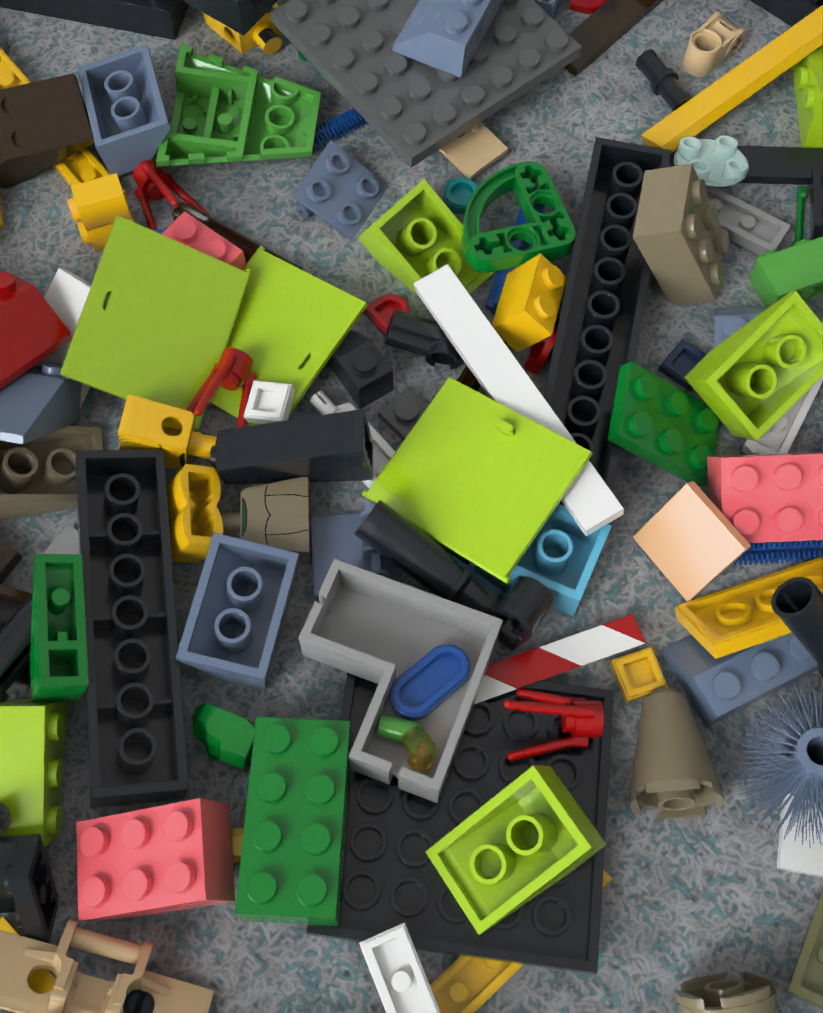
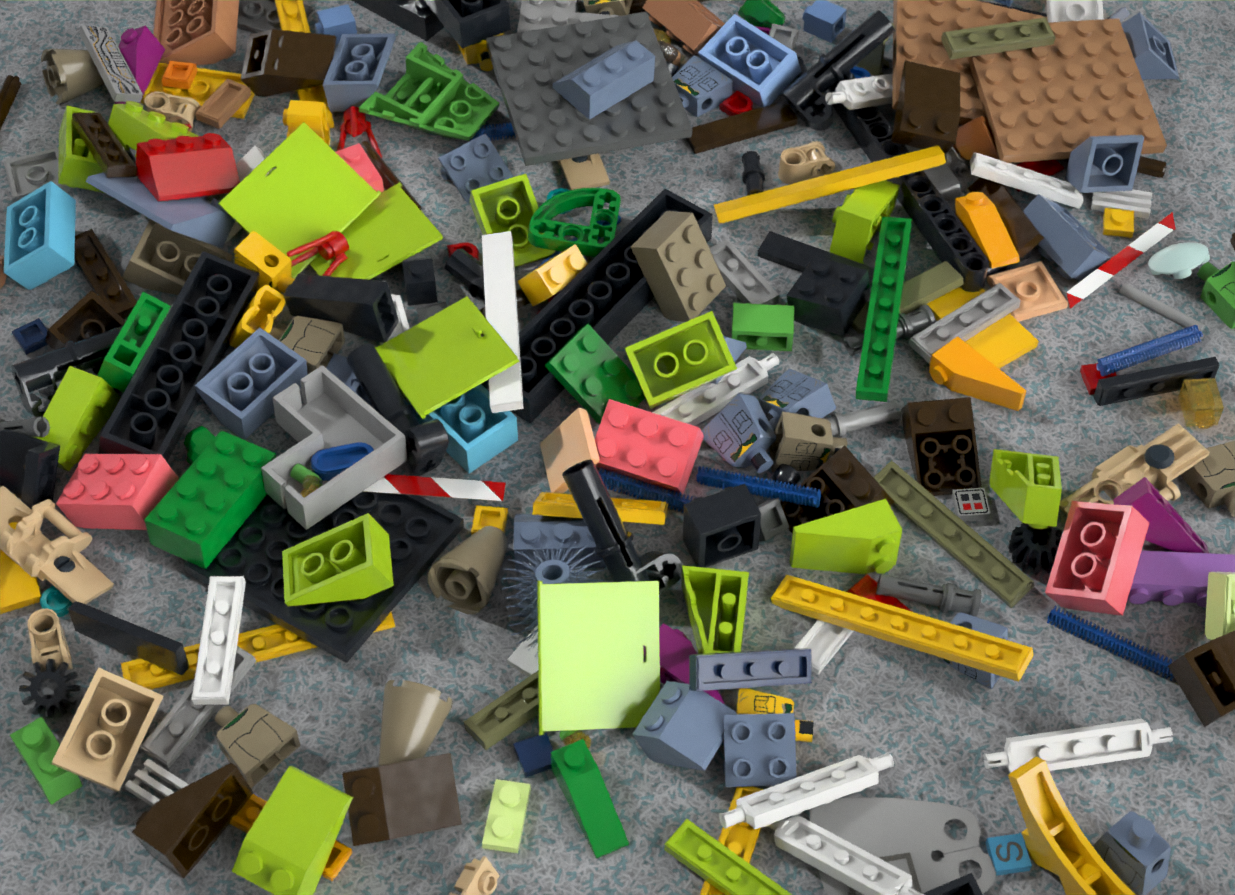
camera: 25 degrees right, 15 degrees down
(54, 54) = (336, 22): none -> medium blue brick
(269, 402) = (346, 269): white tile -> none
(578, 717) = (426, 518): red plant -> none
(714, 160) = (746, 234): light aqua dish -> none

